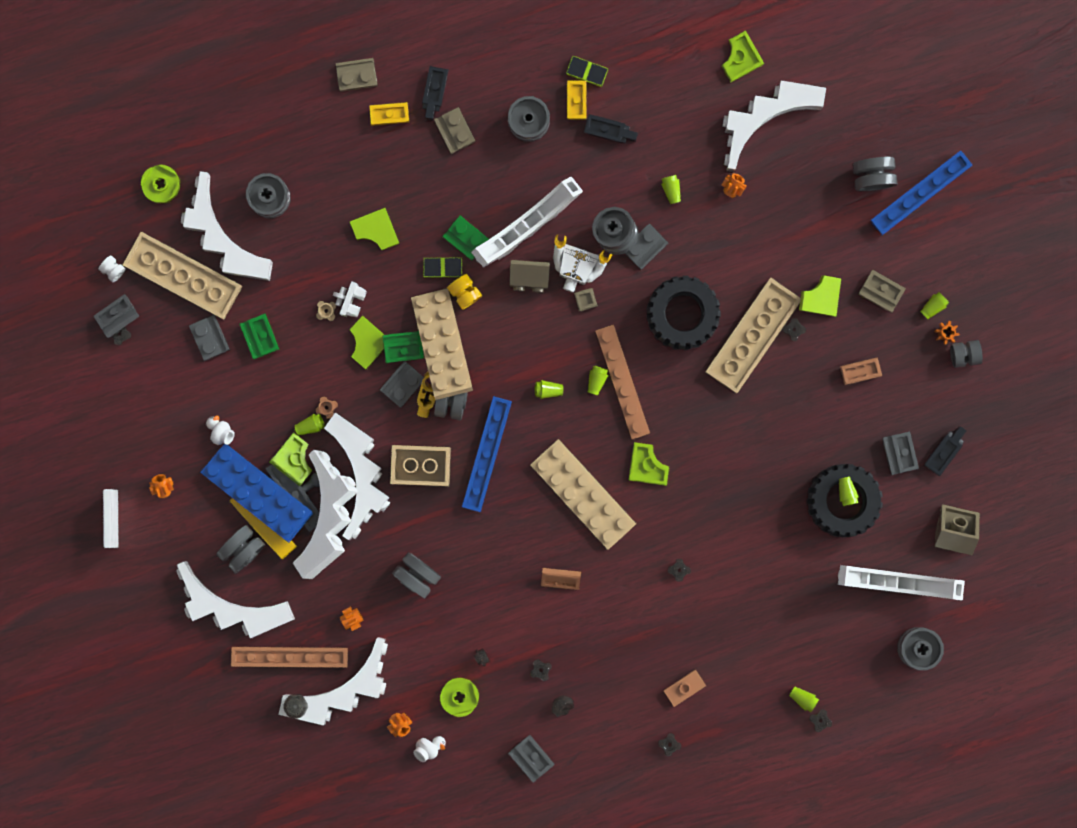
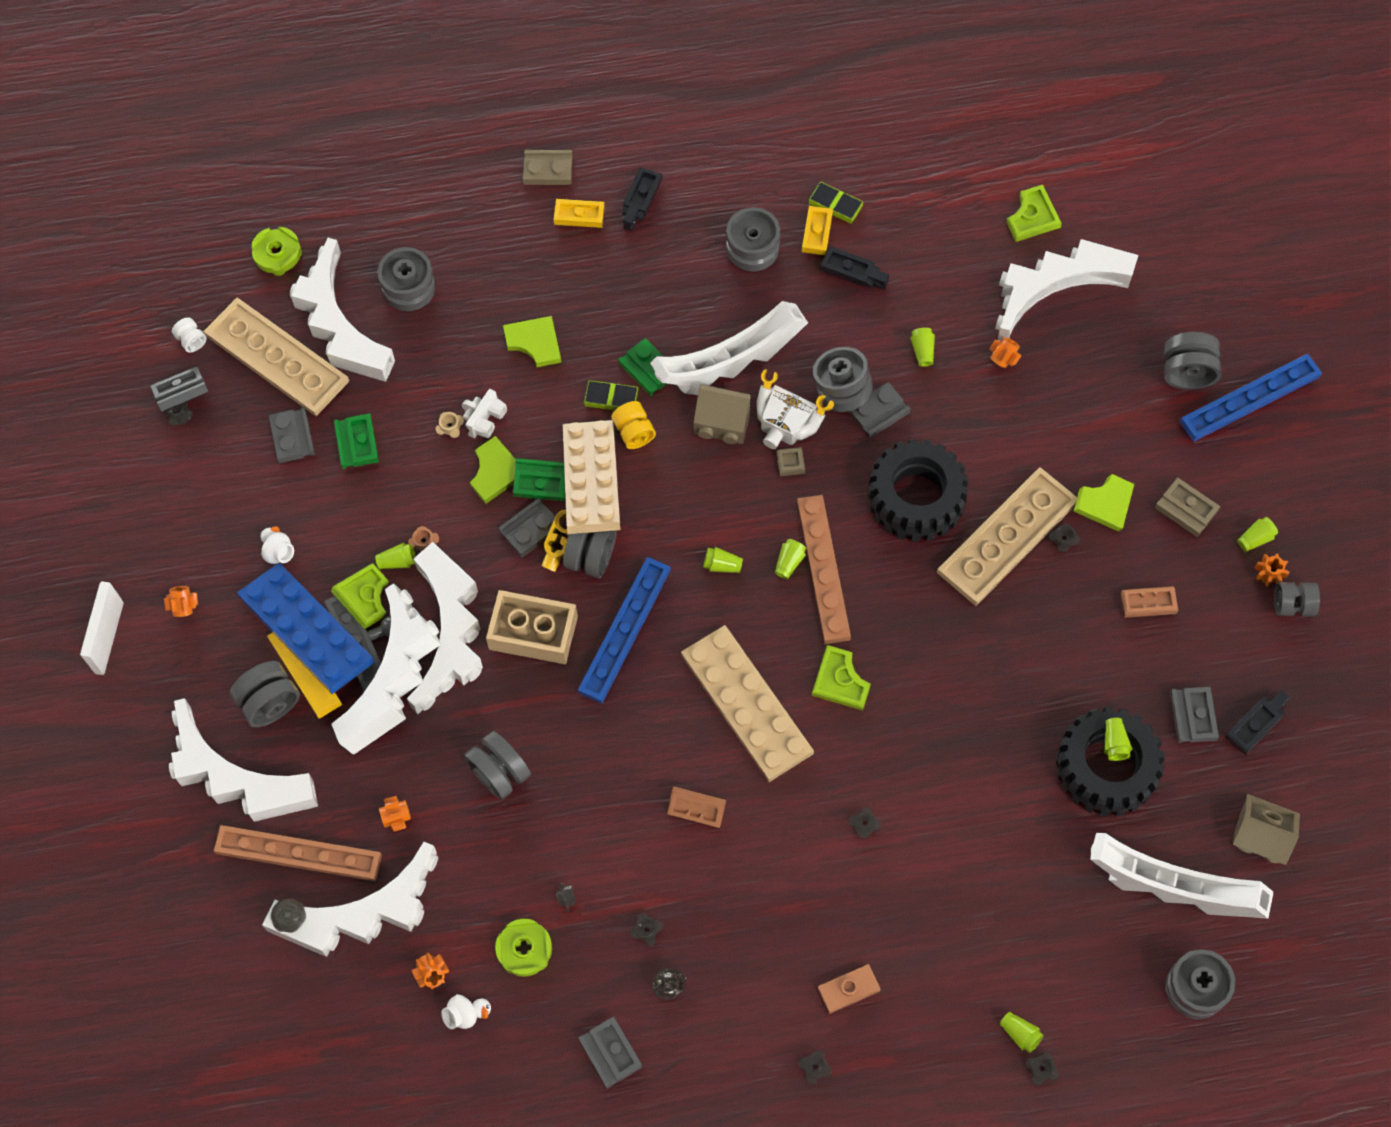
camera: 10 degrees right, 20 degrees down
(454, 130) = (657, 244): dark tan plate -> none

